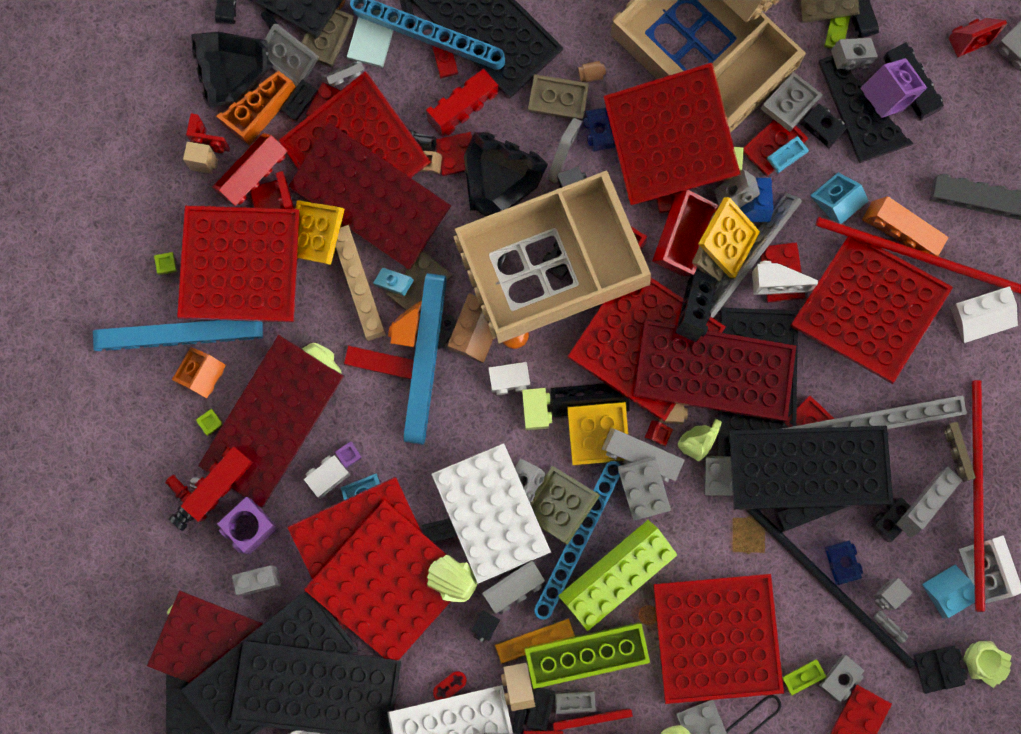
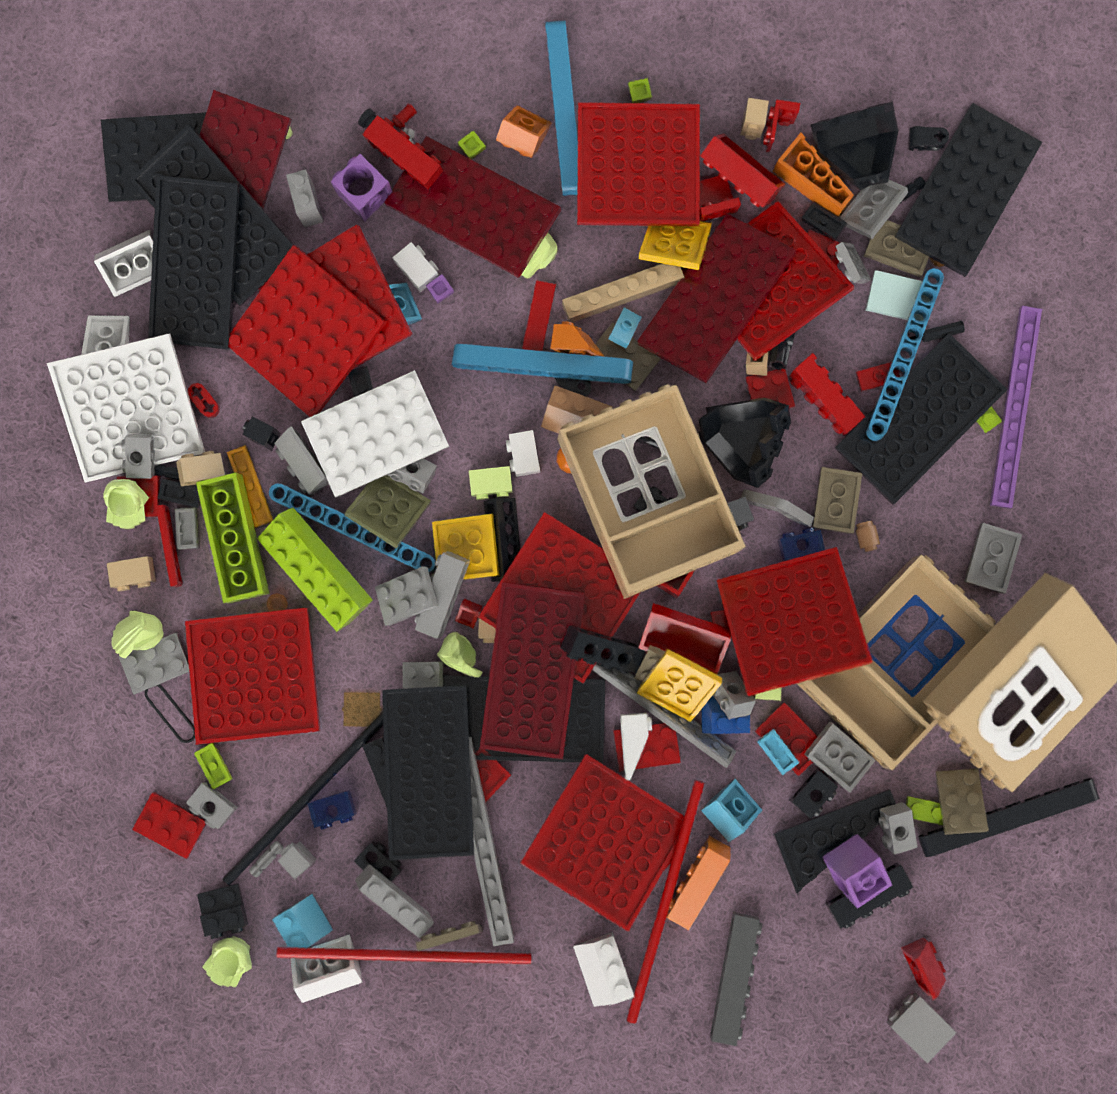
camera: 90 degrees right, 5 degrees up
(452, 579) = (305, 395): yellowish green hair -> none

